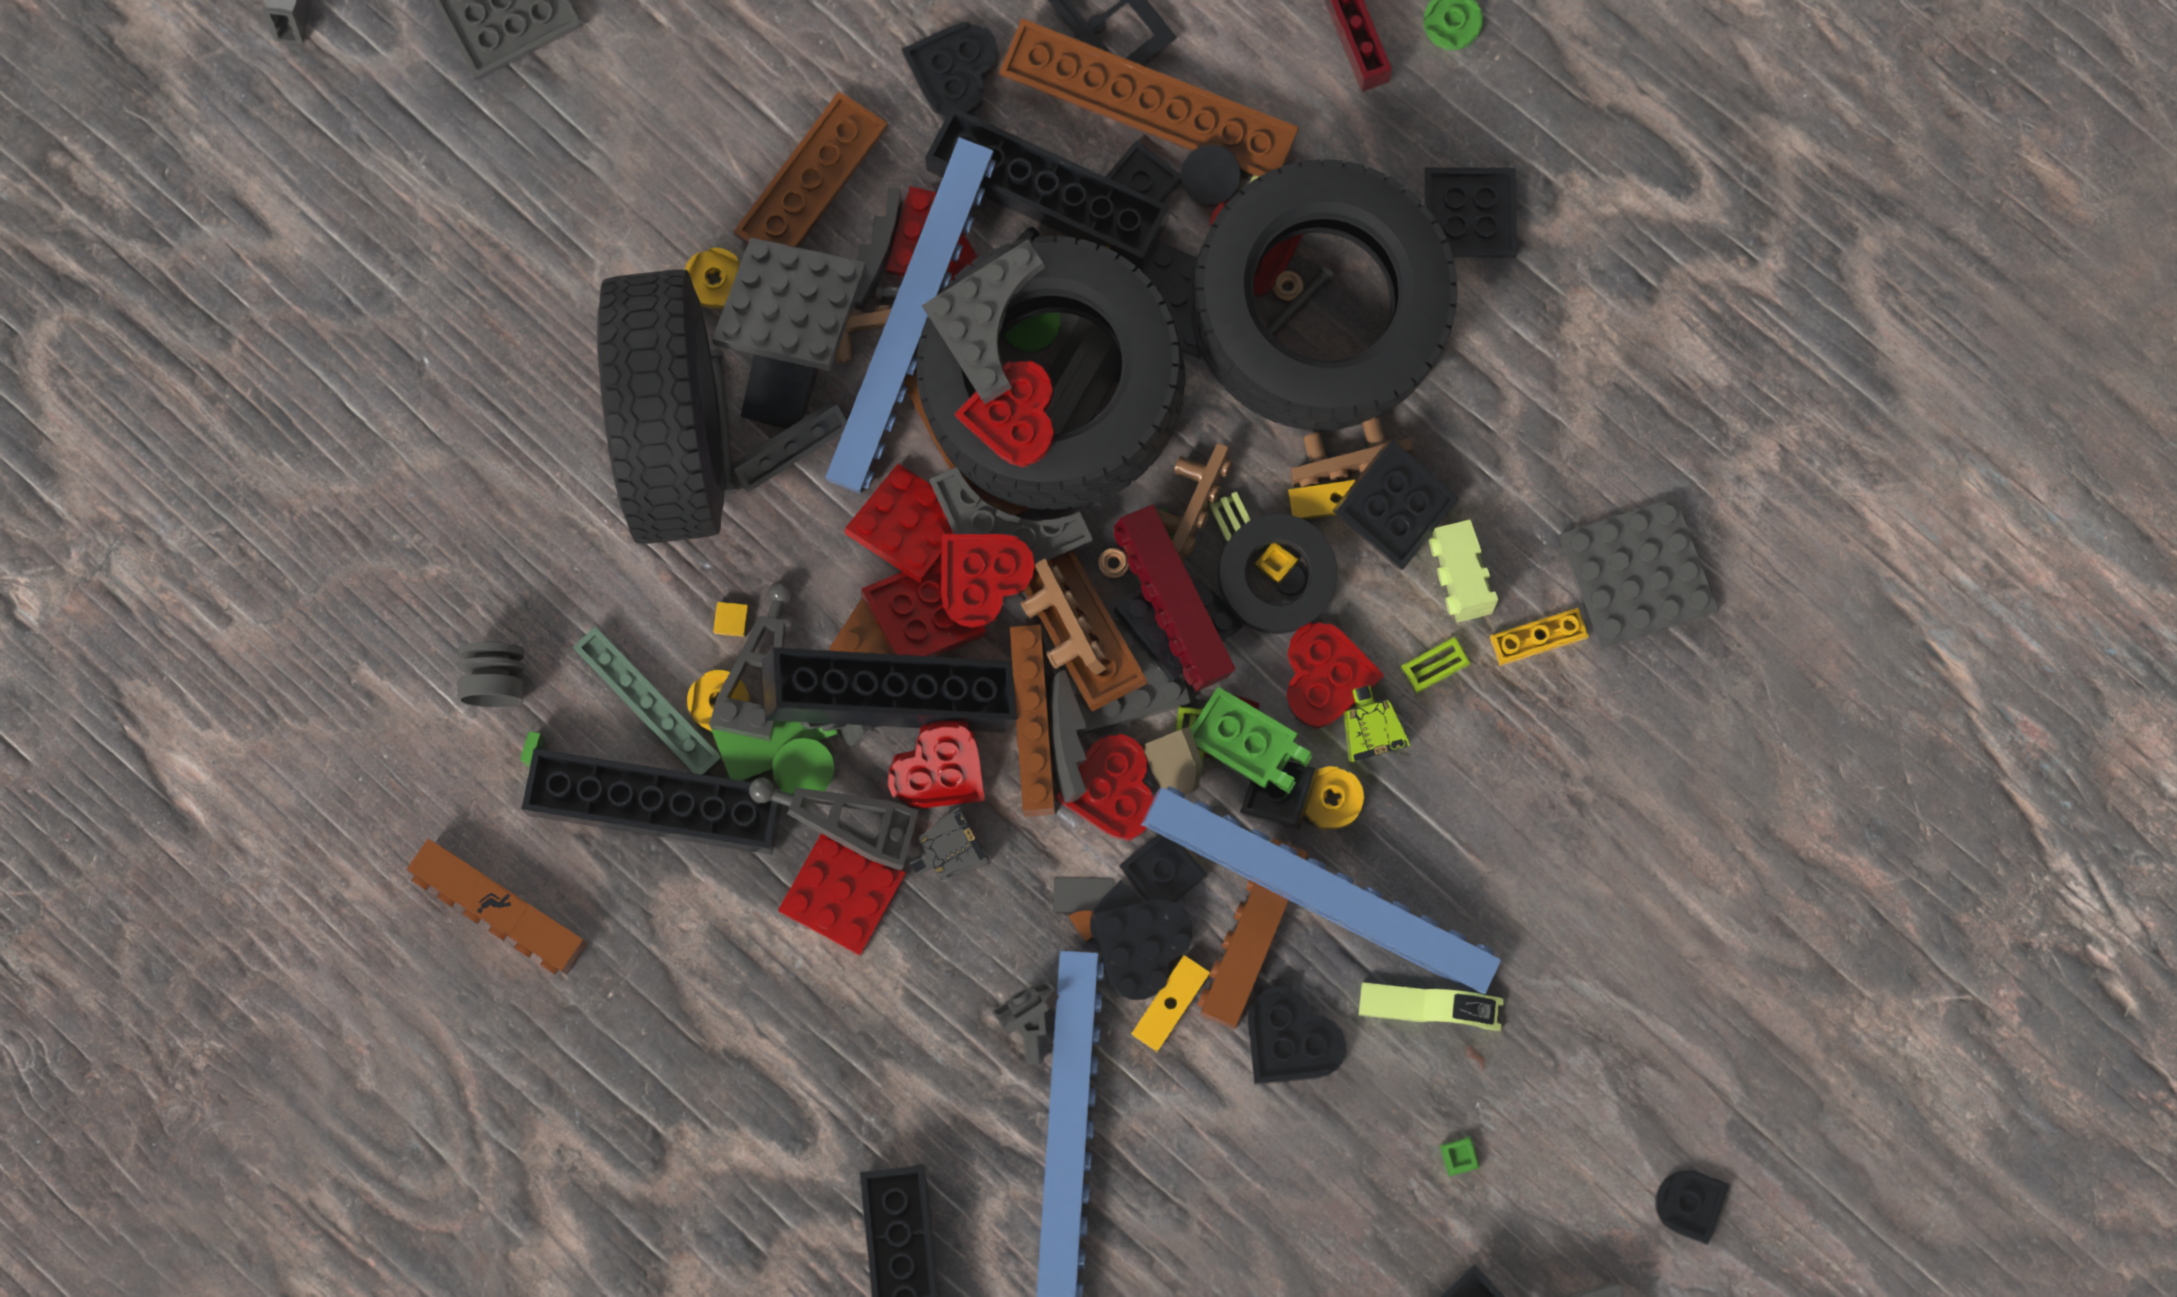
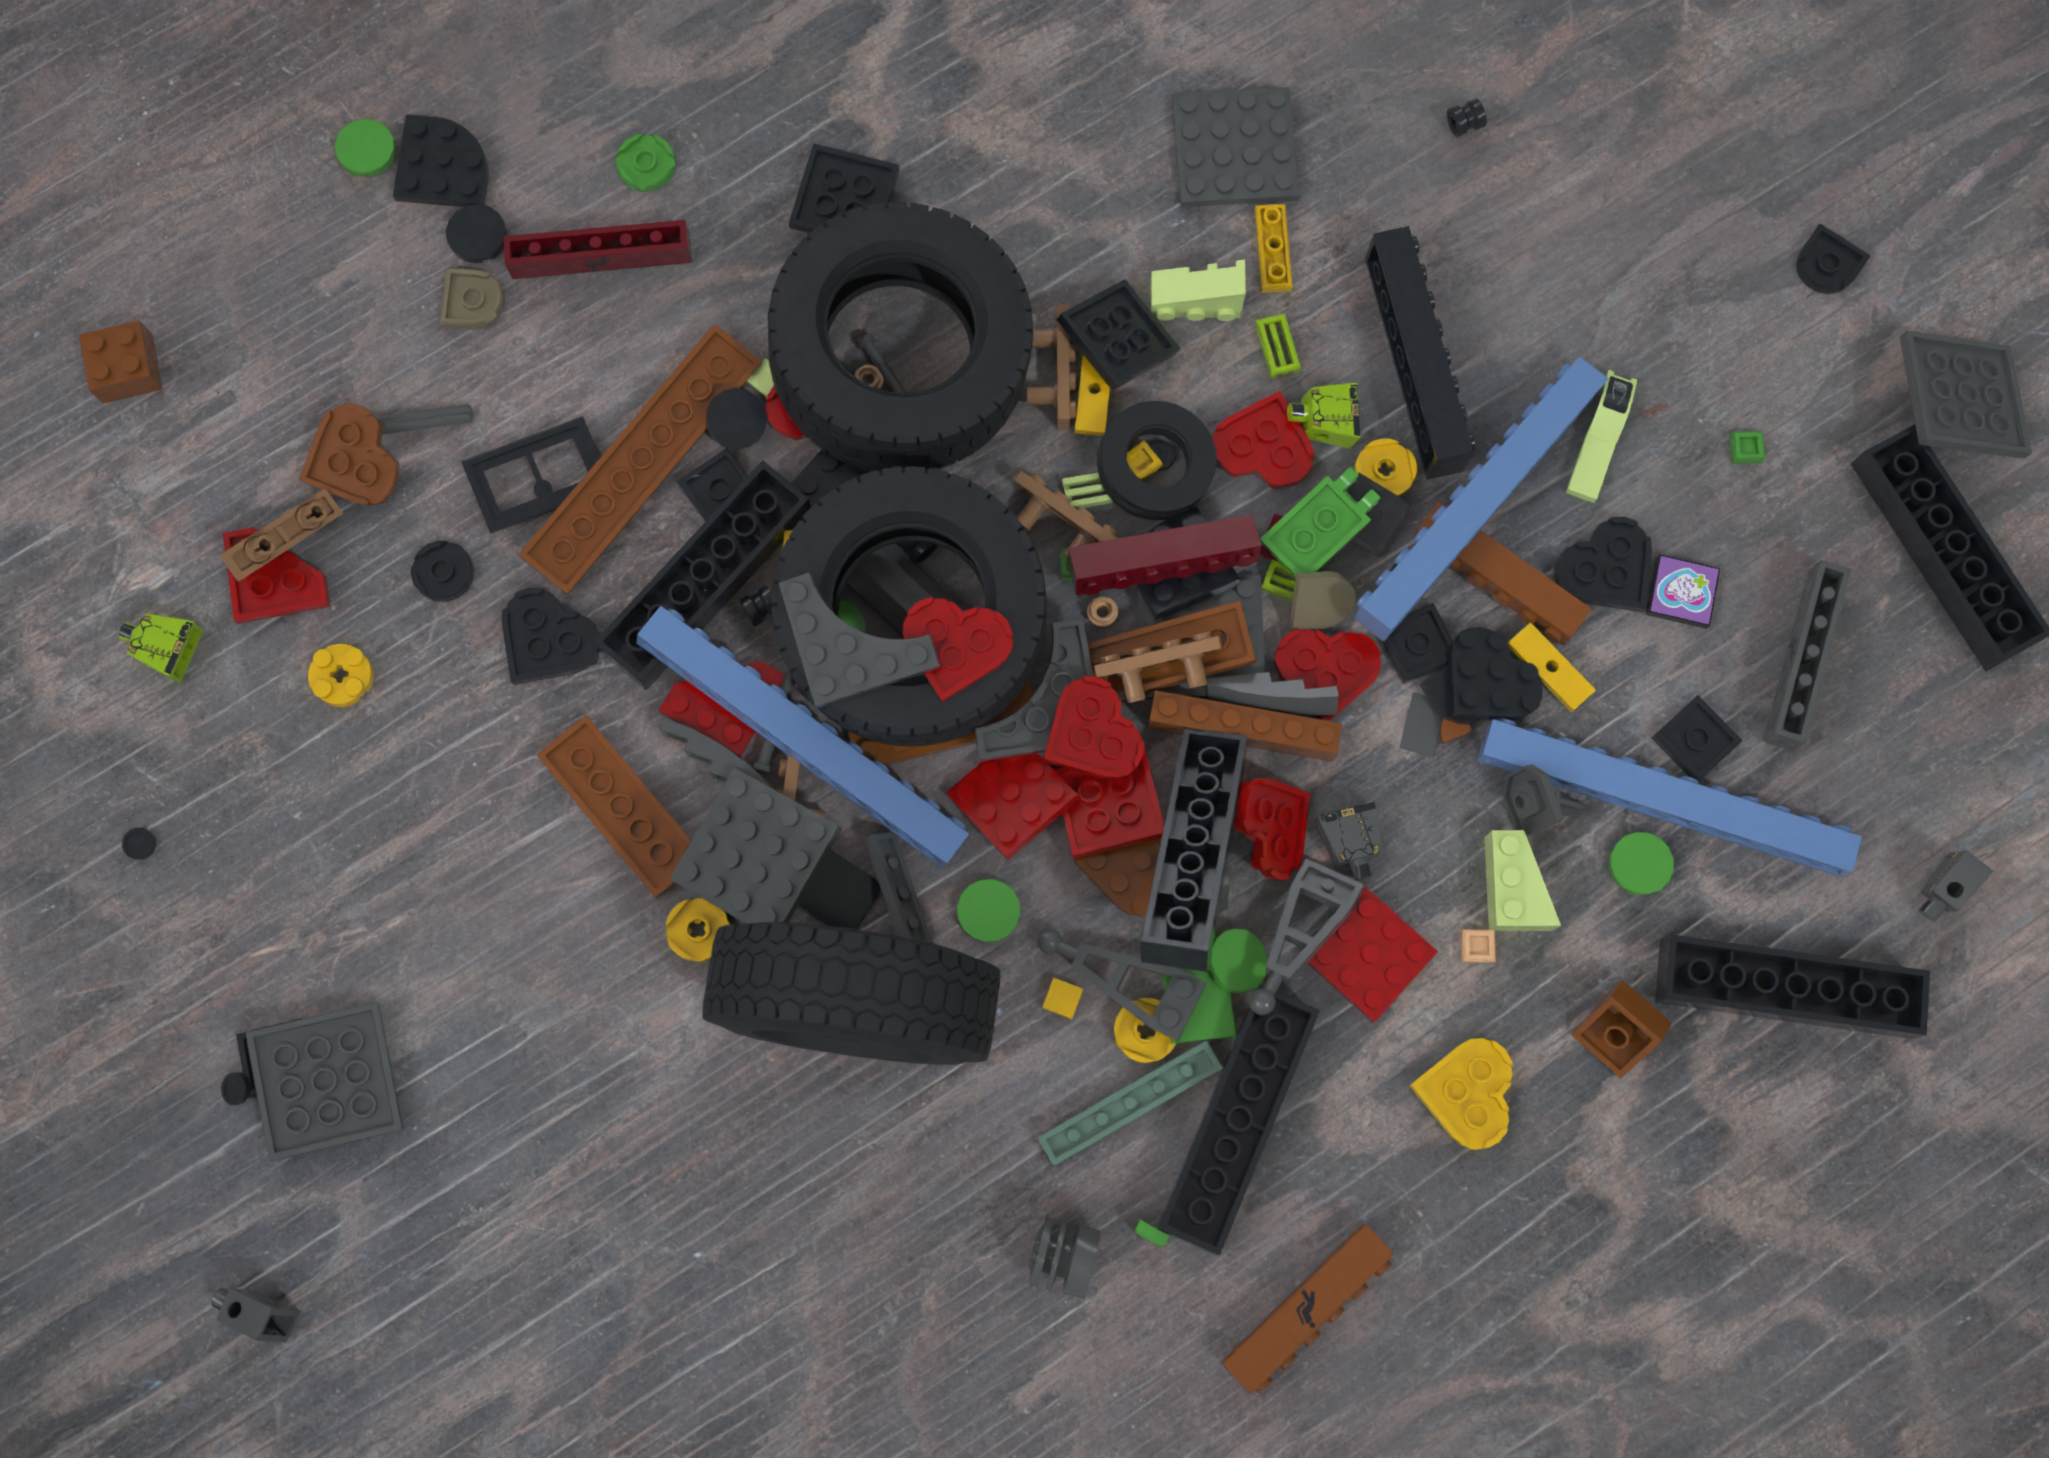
camera: 80 degrees left, 0 degrees up
(731, 1011) = (1468, 1091): none -> yellow plate
(796, 531) = (988, 911): none -> bright green tile
(827, 1145) = (1622, 1029): none -> dark orange slope
(875, 994) = (1478, 946): none -> light nougat tile
(939, 1012) = (1515, 885): none -> yellowish green wedge
(996, 1134) = (1641, 863): none -> bright green tile
(1137, 1164) = (1696, 739): none -> black tile
(1248, 1252) = (1807, 655): none -> dark grey brick
(1286, 1121) = (1683, 591): none -> tile
(1458, 798) = (1419, 353): none -> black brick
(1737, 794) = (1466, 117): none -> black wheel

